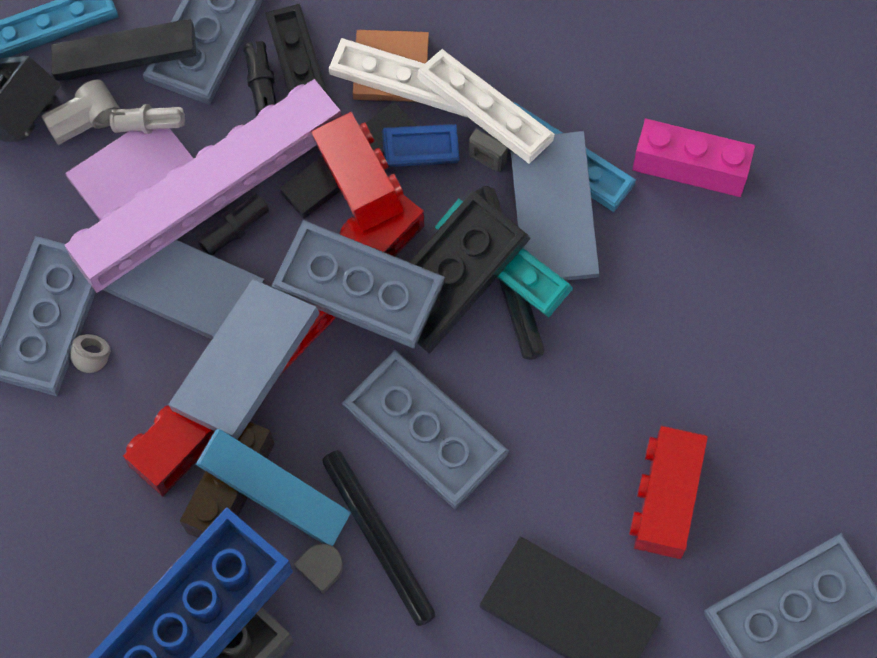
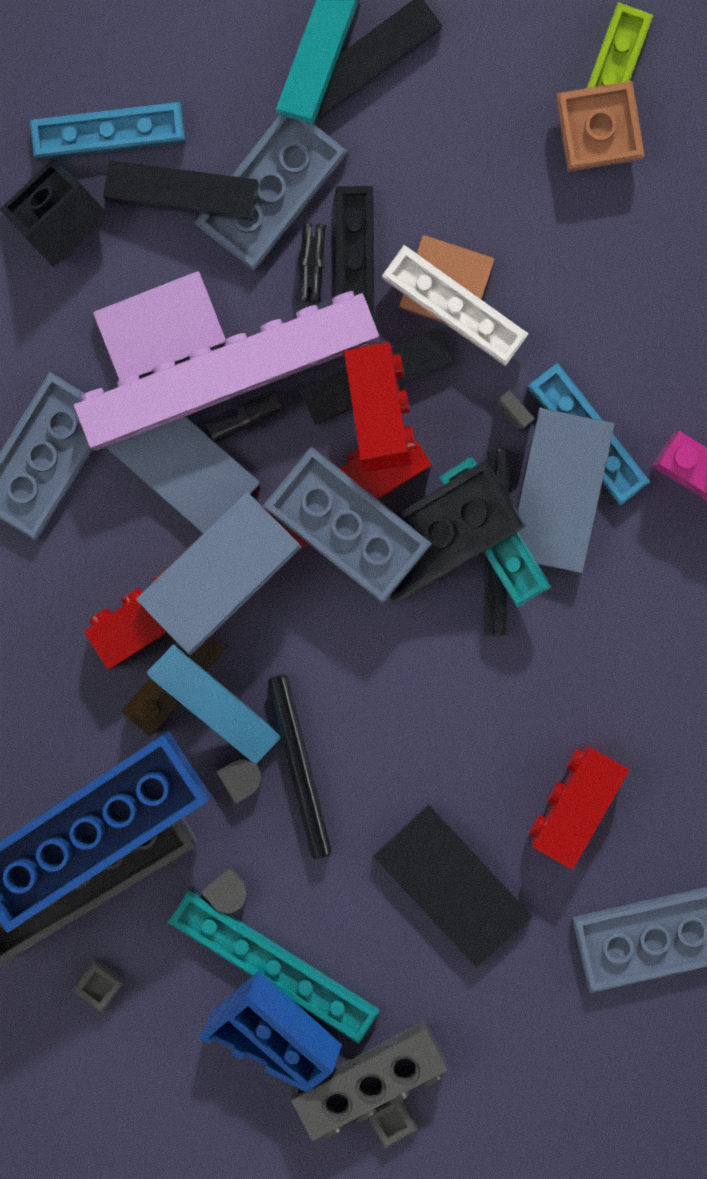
camera: 15 degrees right, 20 degrees up
(87, 361) = (69, 515): light grey piece -> none
(88, 109) = (133, 247): light grey piece -> none
(146, 119) = (186, 281): light grey axle -> none
(421, 145) = (450, 384): blue tile -> none
(425, 429) = (372, 675): sand blue tile -> none
(485, 106) = (525, 368): white tile -> none

